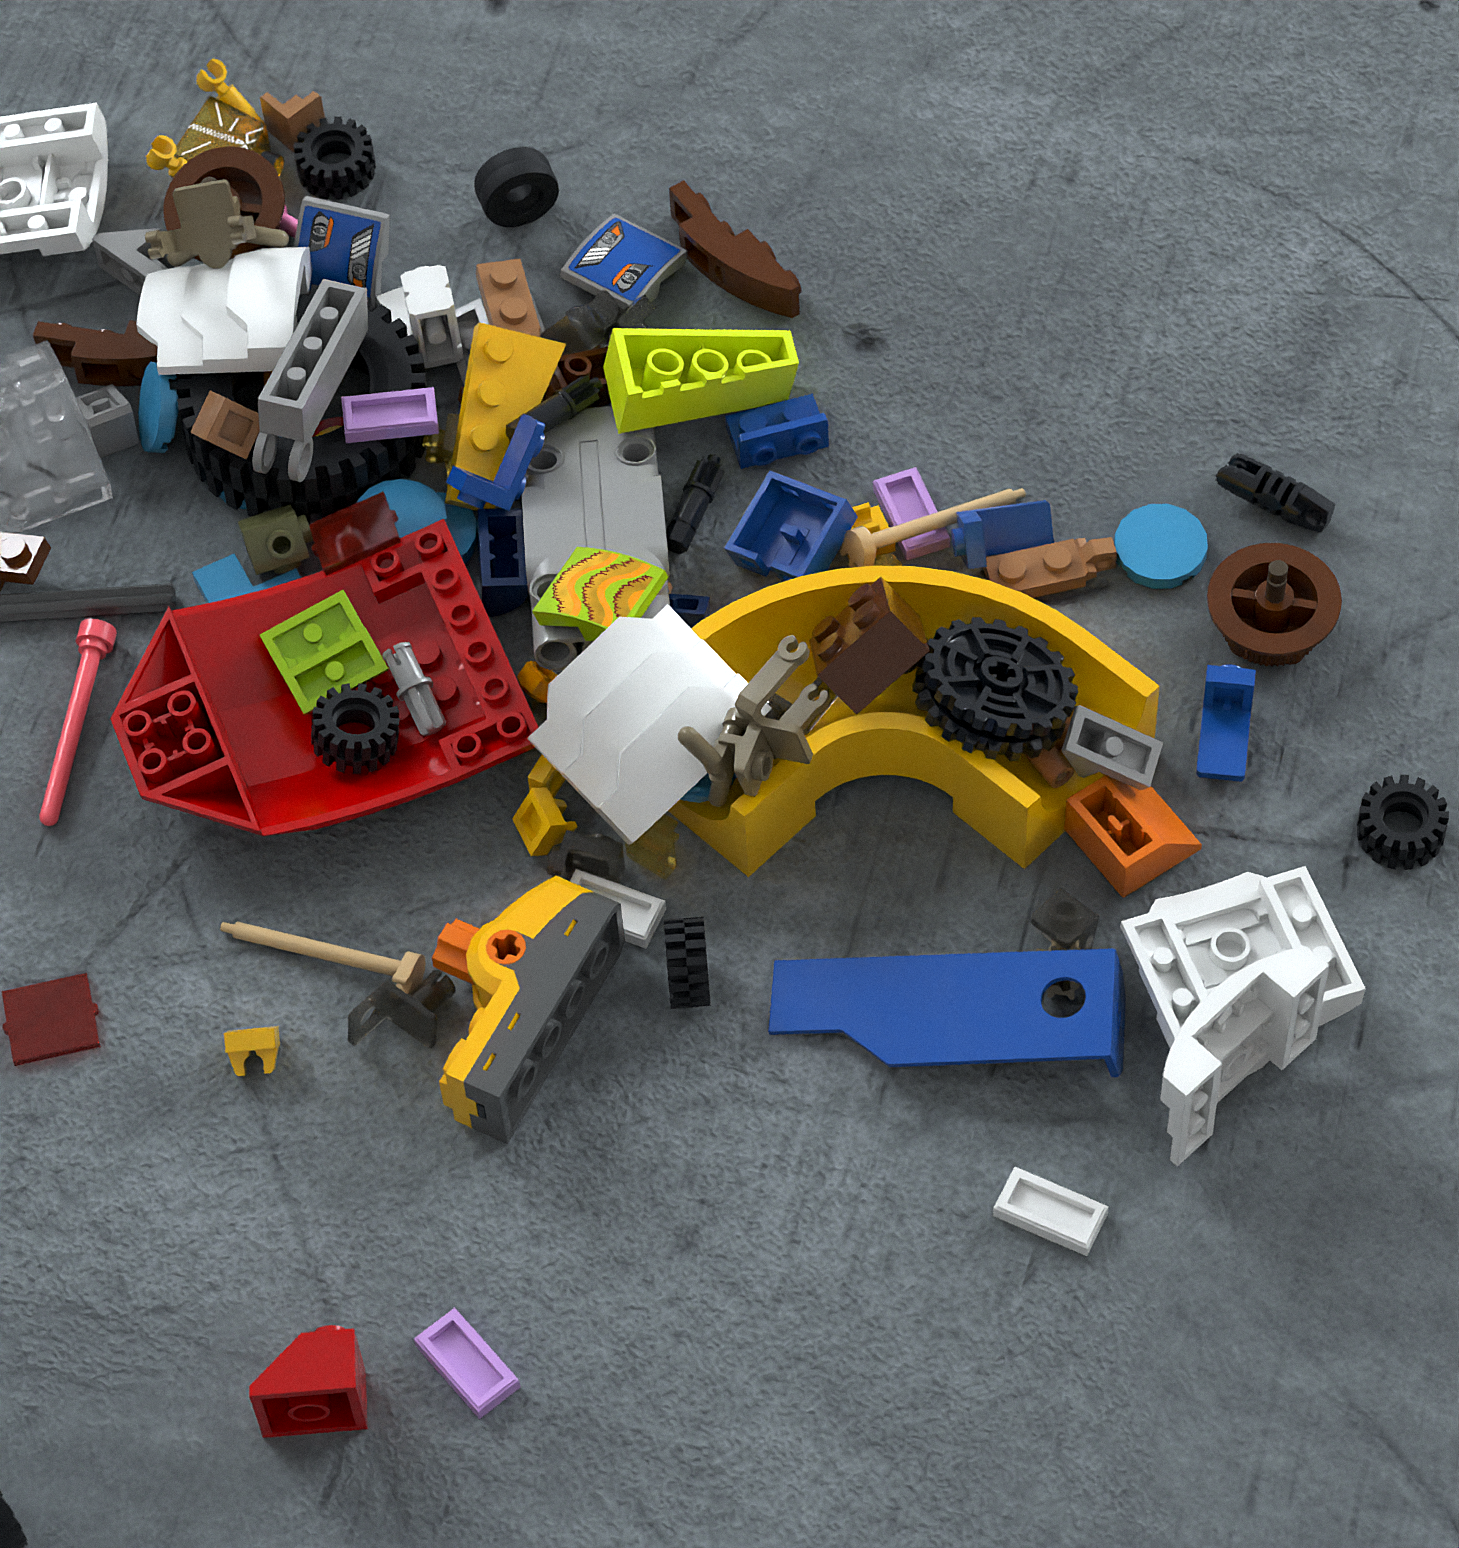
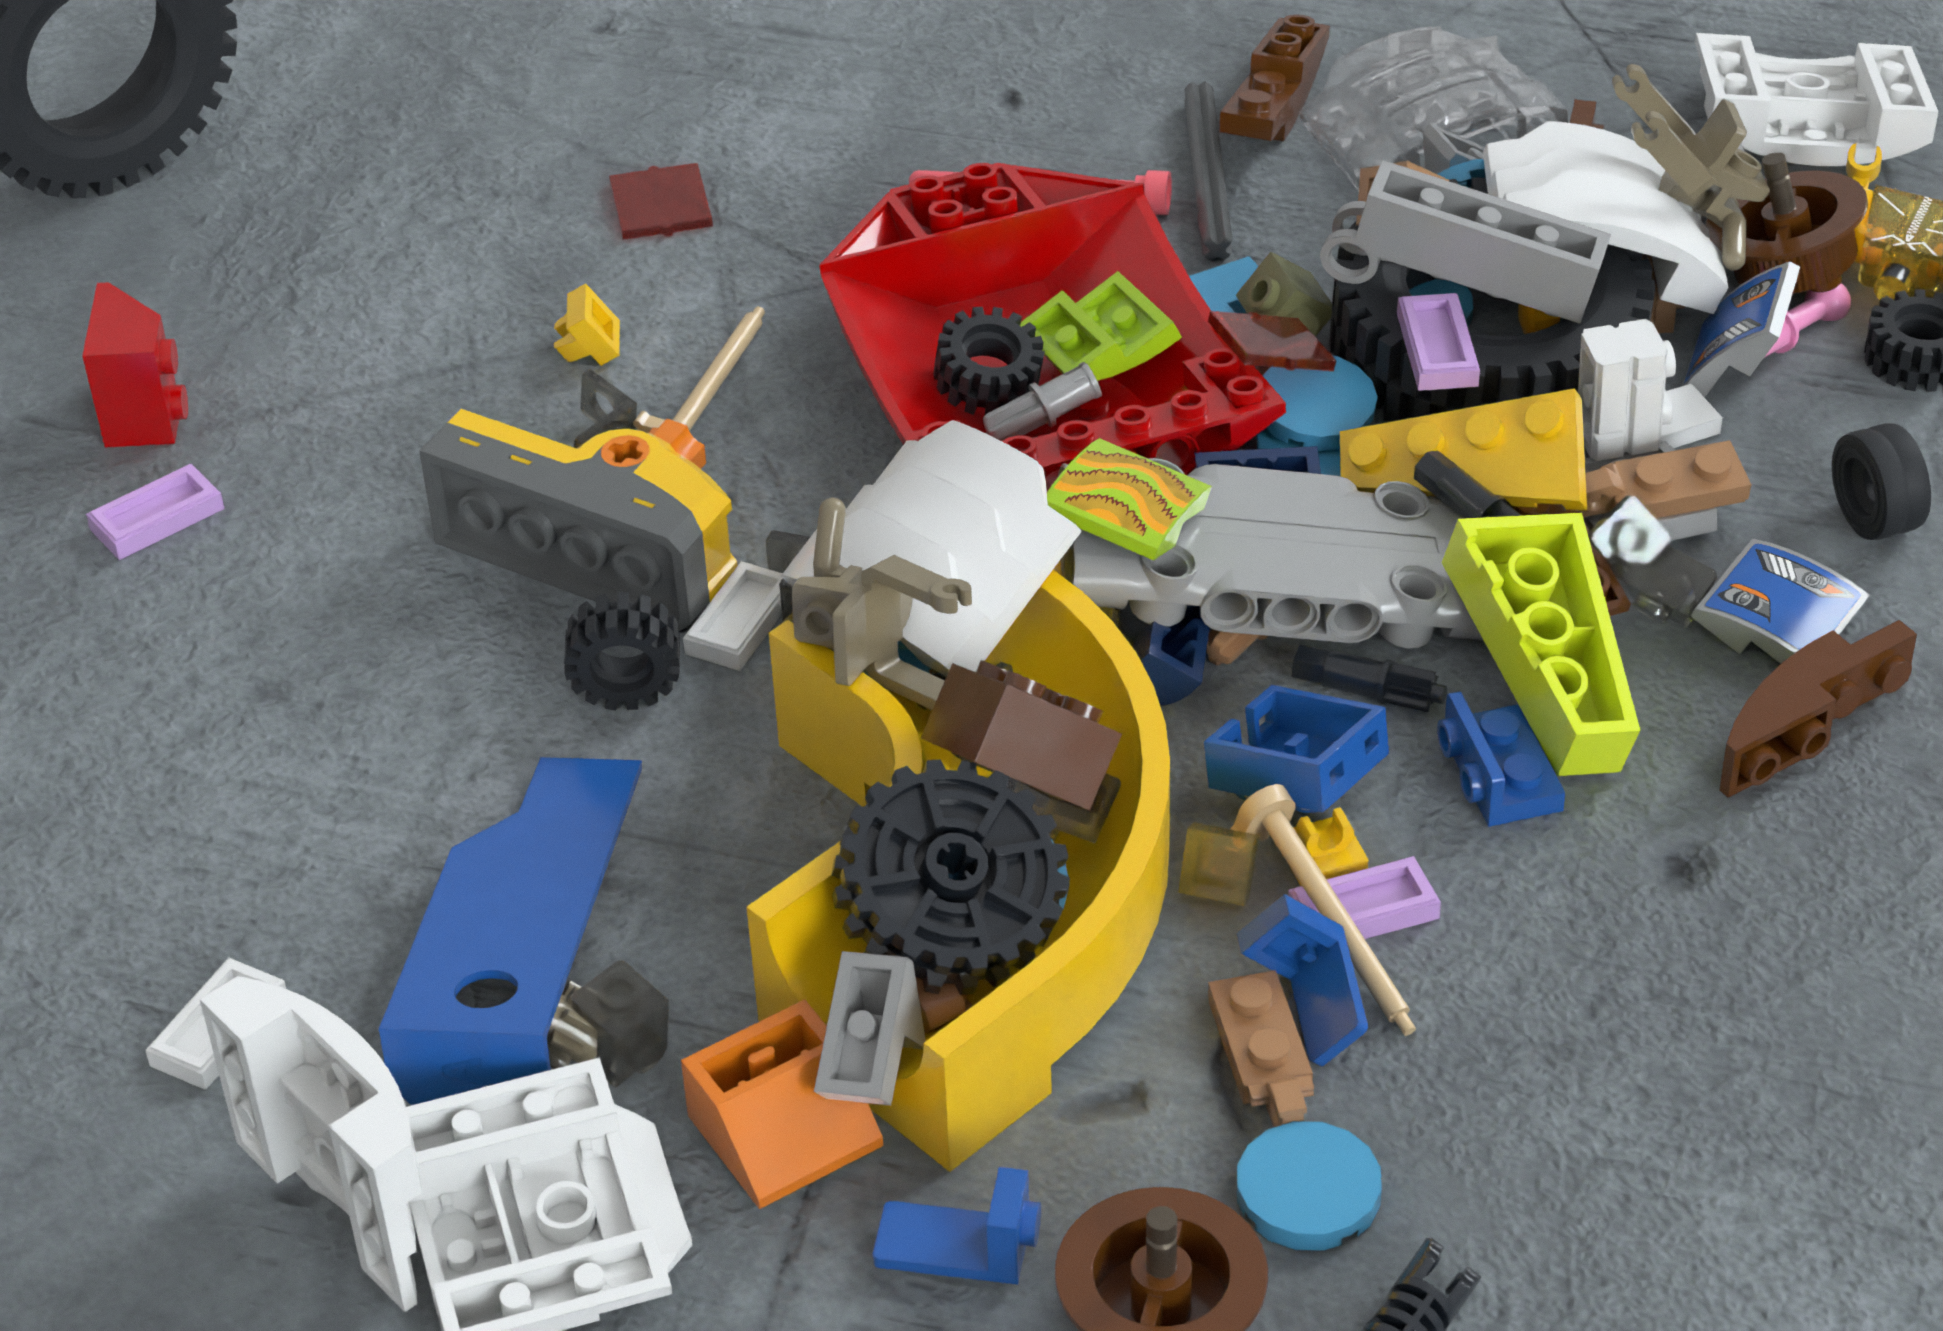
camera: 90 degrees right, 15 degrees down
(511, 477) = (1340, 447): blue bracket -> none

